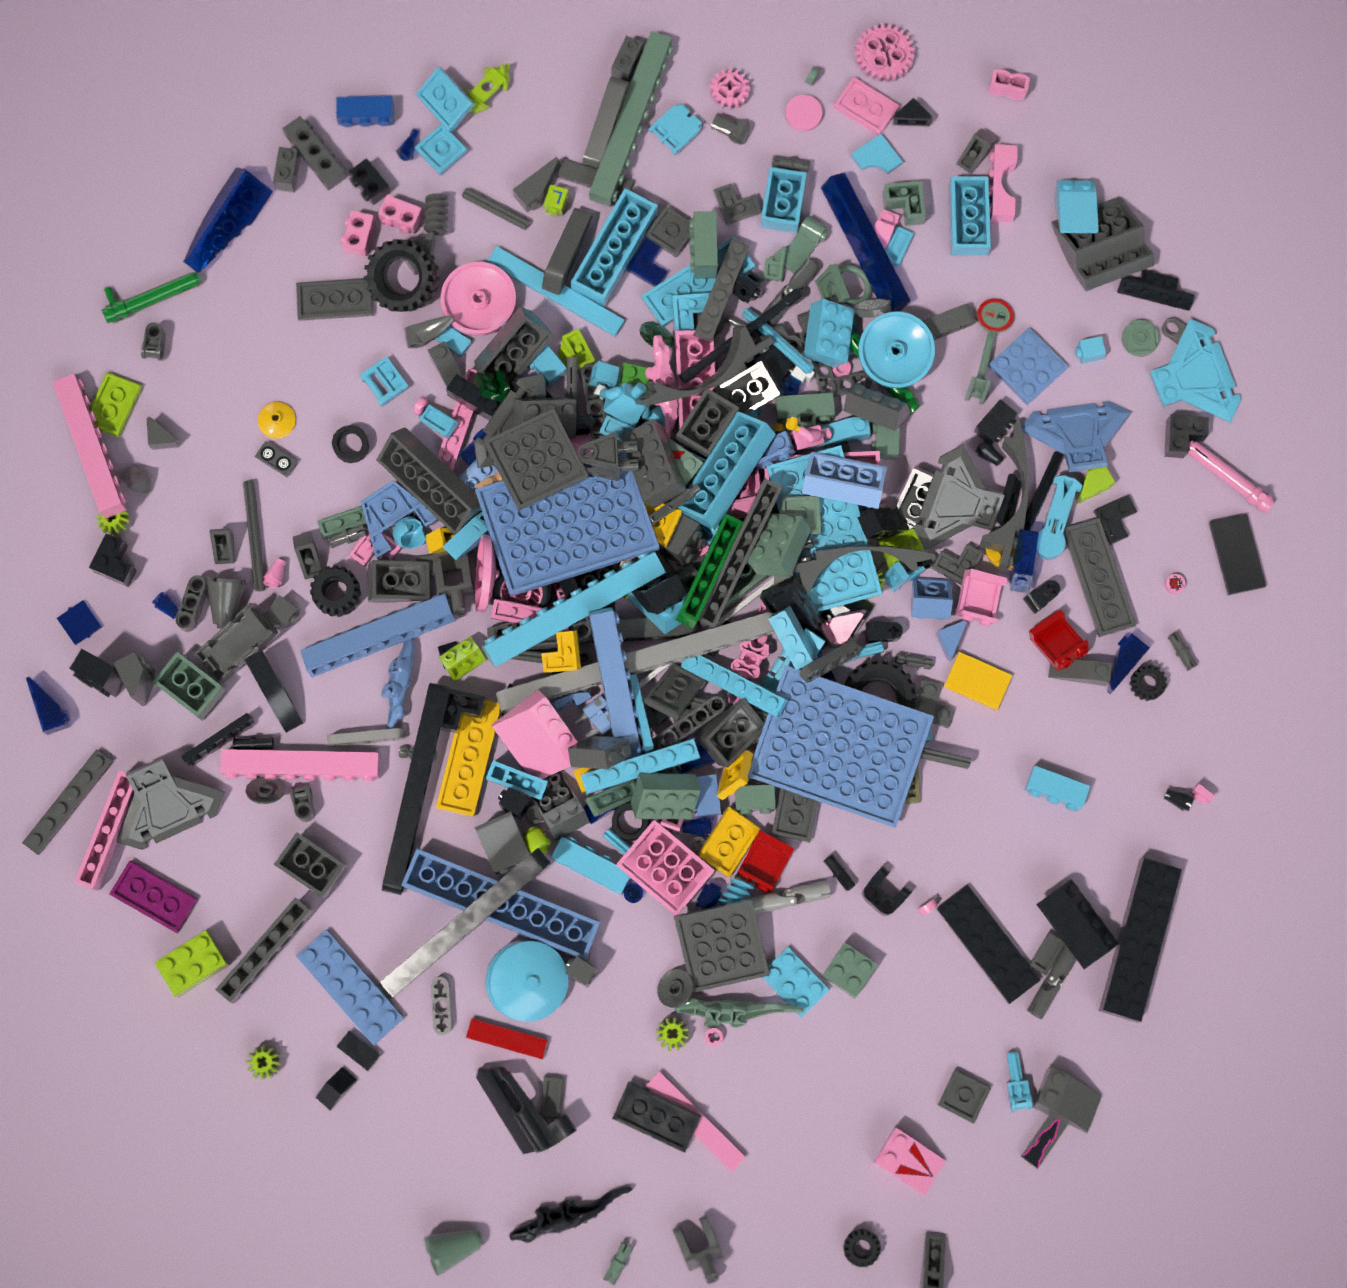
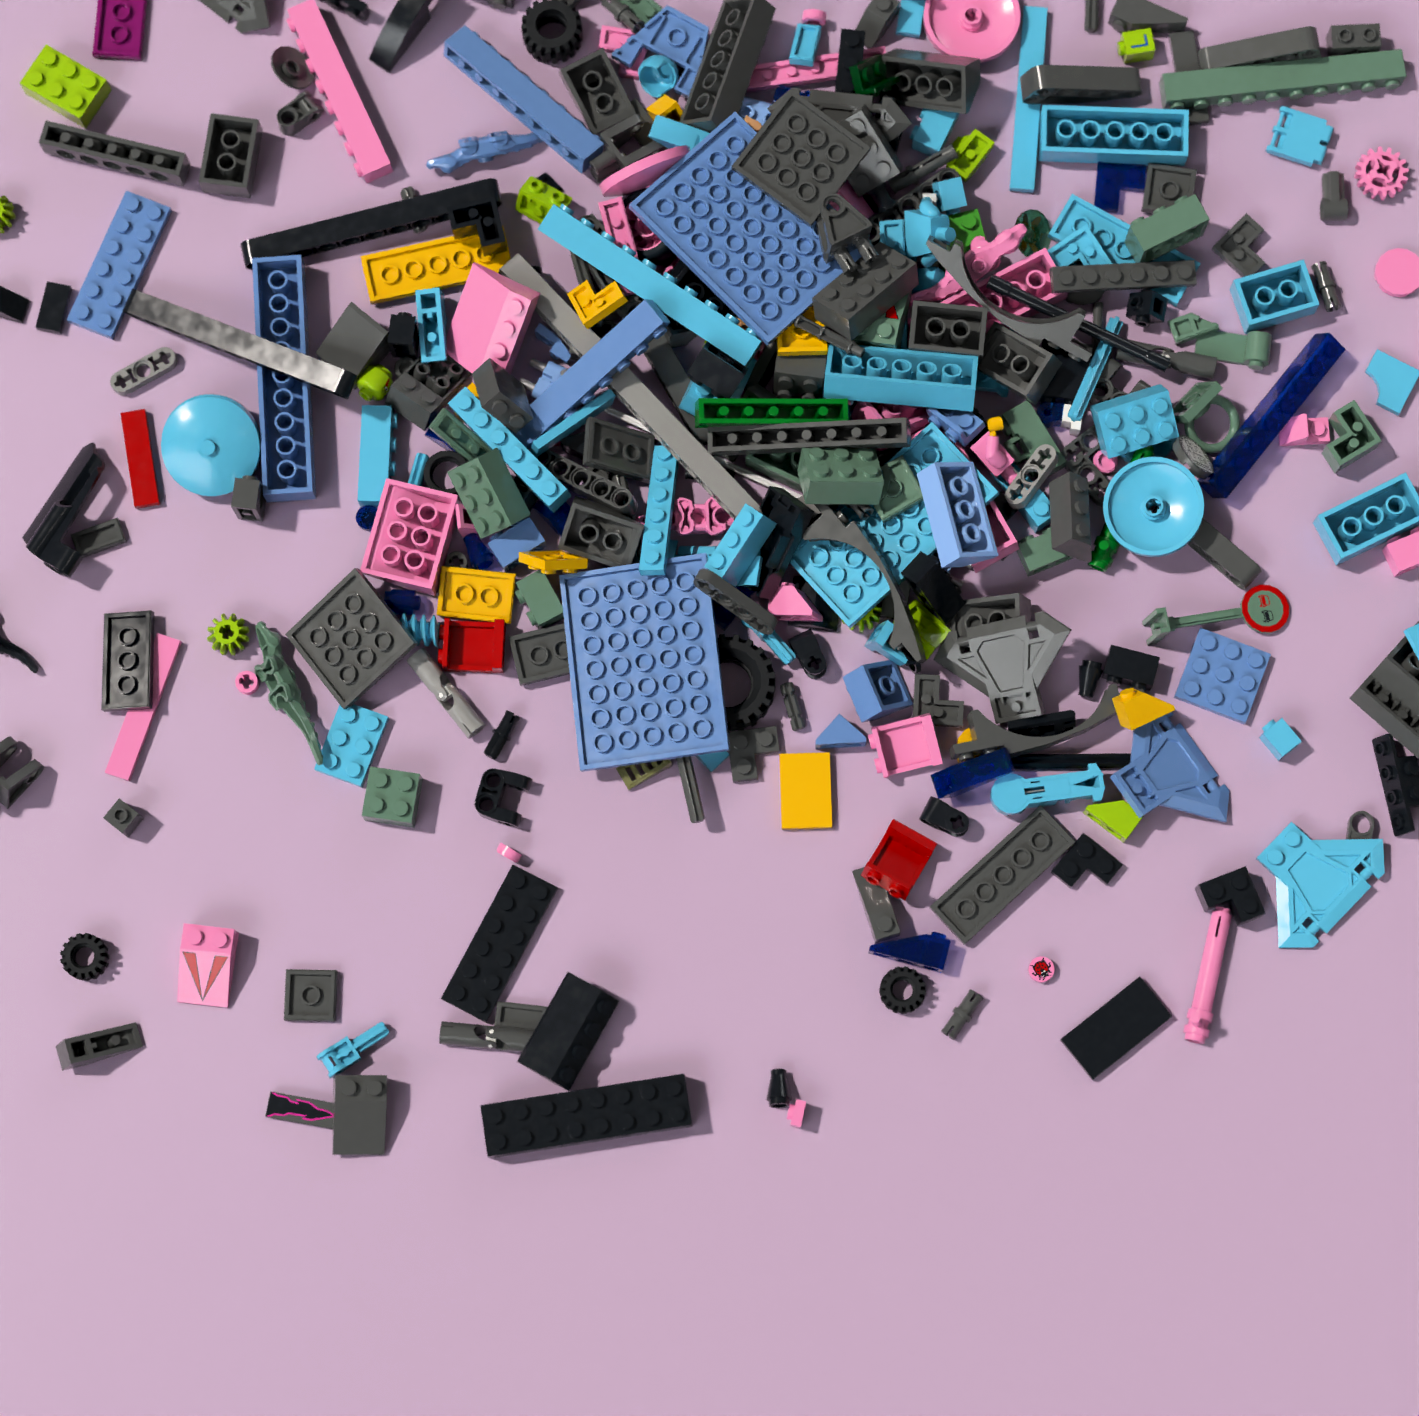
camera: 70 degrees right, 0 degrees up
(253, 743) = (338, 30): black pin -> none
(365, 737) = (403, 144): light grey beam -> none
(668, 988) = (280, 612): dark grey dish -> none
(773, 1172) = (123, 817): none -> dark grey brick
(832, 405) = (1047, 465): none -> light grey beam
(898, 245) = (1291, 457): medium azure tile -> none
(1031, 429) = (1138, 708): none -> yellow slope
(1057, 788) = (720, 938): medium azure brick -> none
(1140, 338) = (1328, 793): sand green tile -> none

